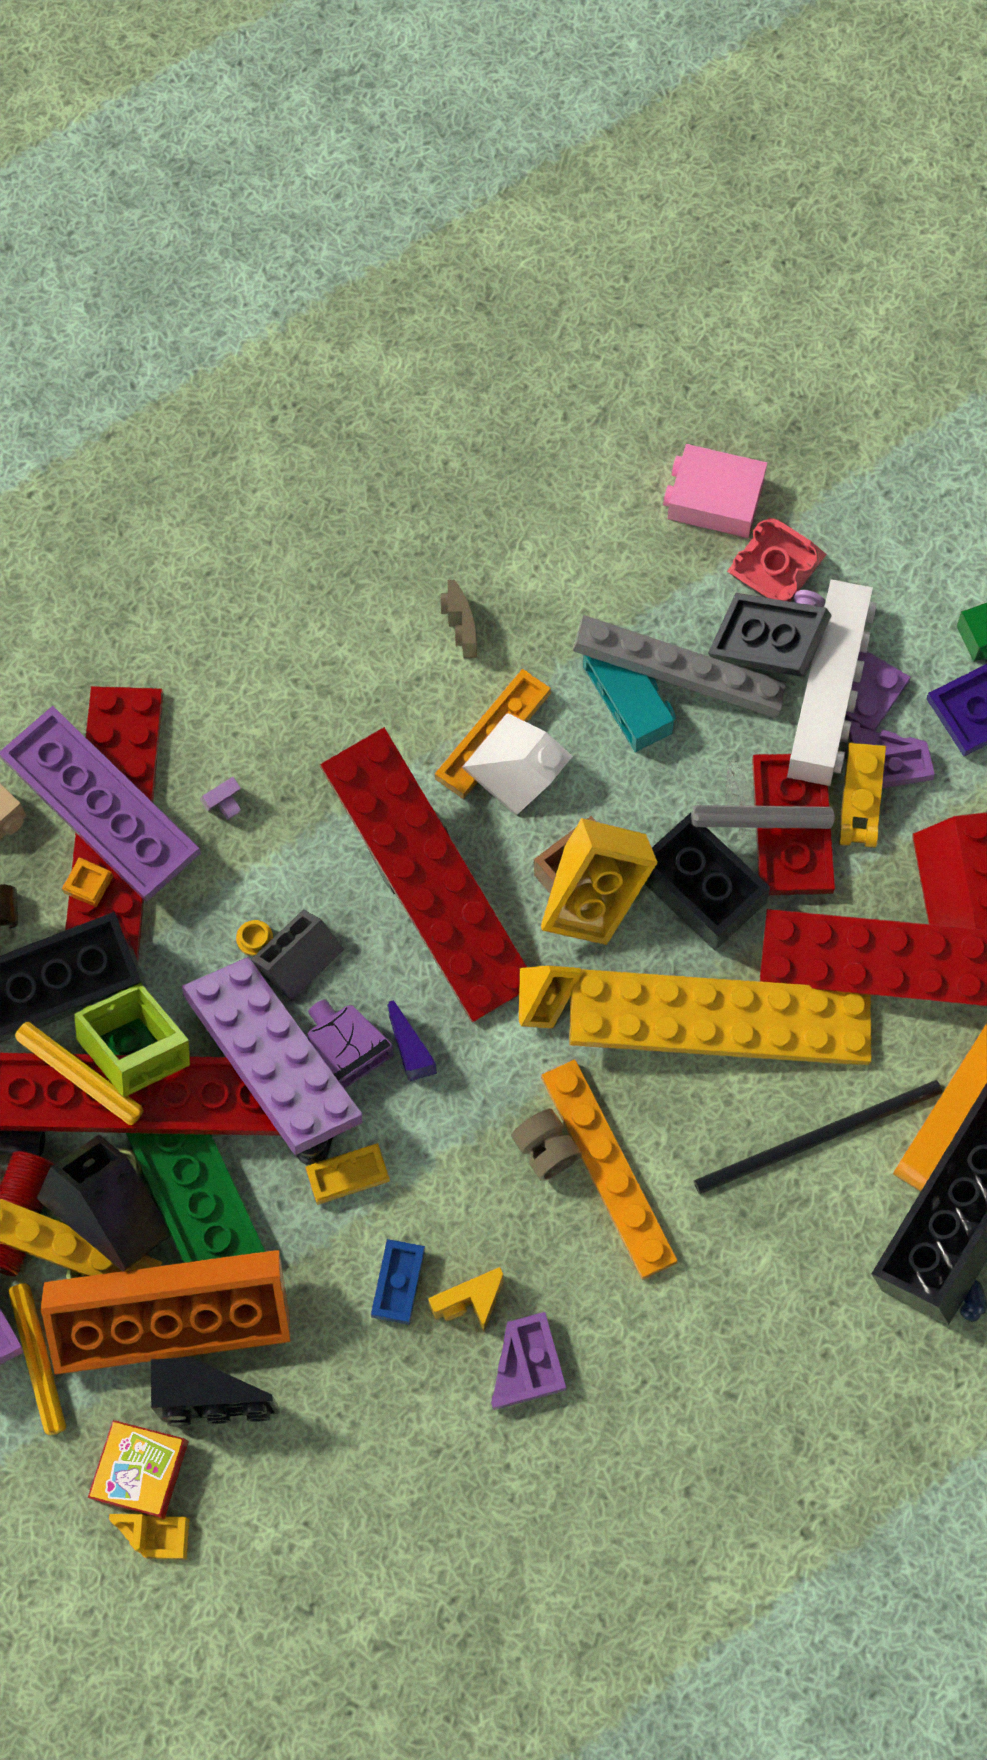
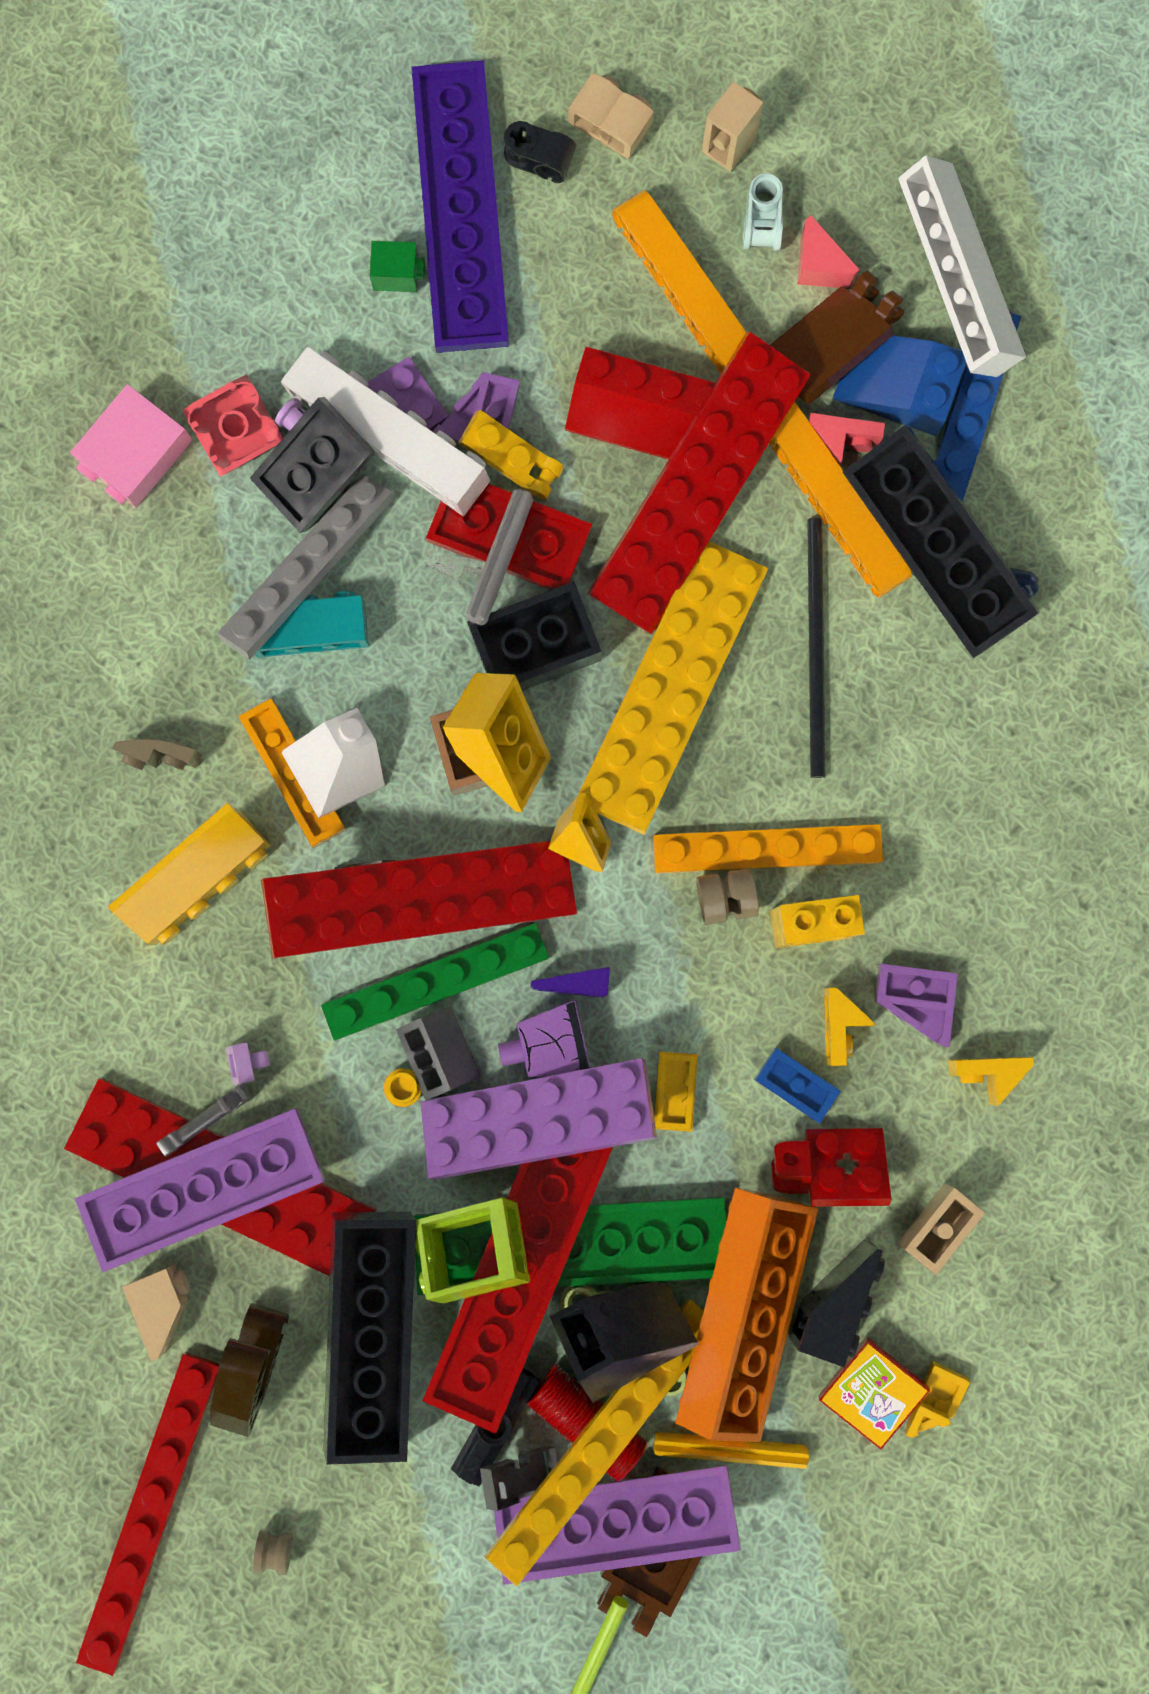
camera: 70 degrees left, 15 degrees up
(78, 1073) = (482, 1316): yellow axle -> none
(87, 882) = (279, 1231): light orange tile -> none
(179, 793) = (224, 1106): none -> flat silver bar
(316, 1464) = (940, 1228): none -> tan brick
(331, 1327) = (813, 1167): none -> red plate
(361, 928) = (434, 982): none -> green plate
(367, 685) = (191, 876): none -> yellow slope
(490, 1469) = (1001, 1073): none -> yellow slope
(559, 1237) = (817, 921): none -> yellow window

